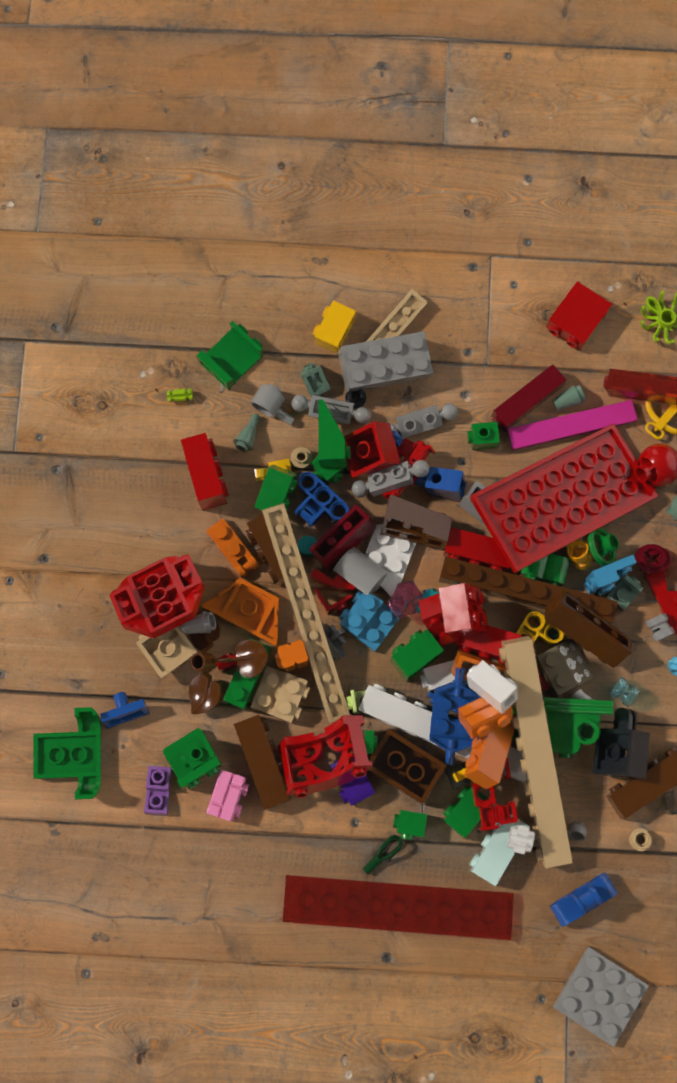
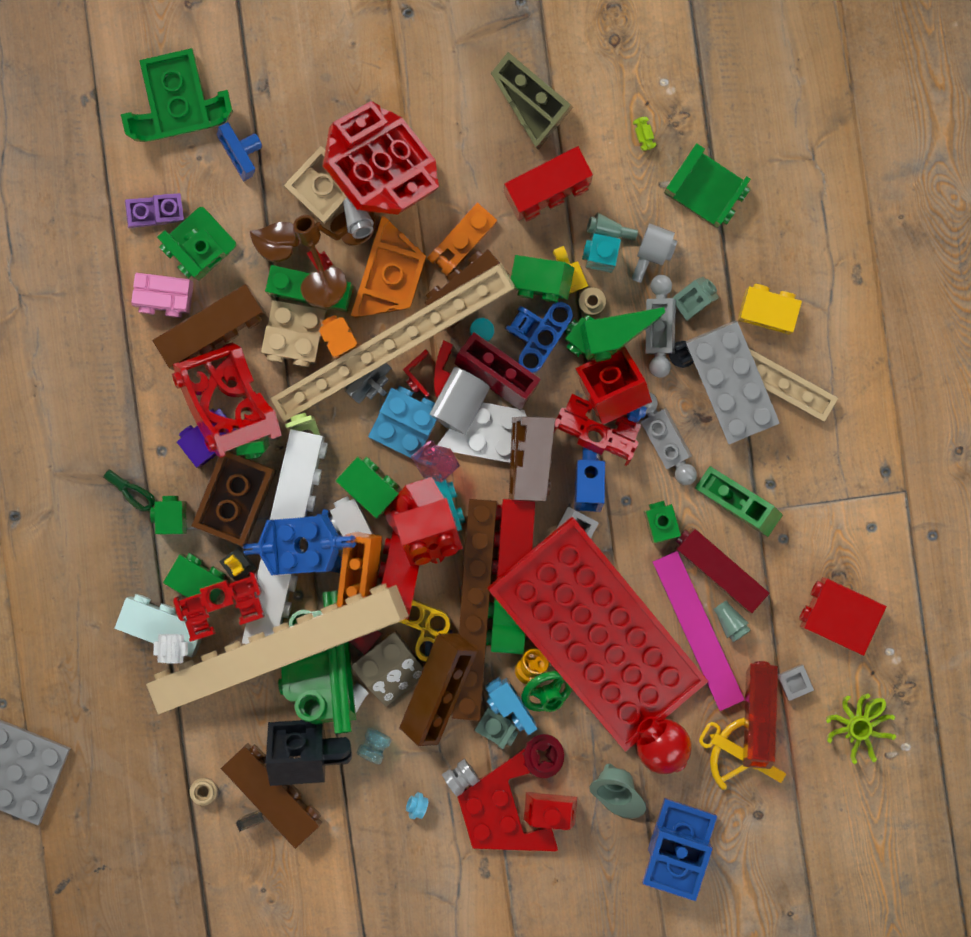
camera: 80 degrees right, 10 degrees up
(135, 472) = (532, 100): none -> olive wedge
(266, 440) = (601, 252): none -> teal brick
(390, 478) = (581, 415): light grey plate -> none
(398, 907) = (73, 519): clear red plate -> none
(477, 375) = (739, 501): none -> green slope
(481, 717) = (304, 581): orange brick -> none
(489, 756) = (265, 593): orange brick -> none
(492, 686) = (335, 583): white brick -> none
(577, 831) = (198, 715): light grey hinge -> none
(583, 899) = (121, 734): blue piece -> none
(624, 359) = (795, 682): none -> light grey plate

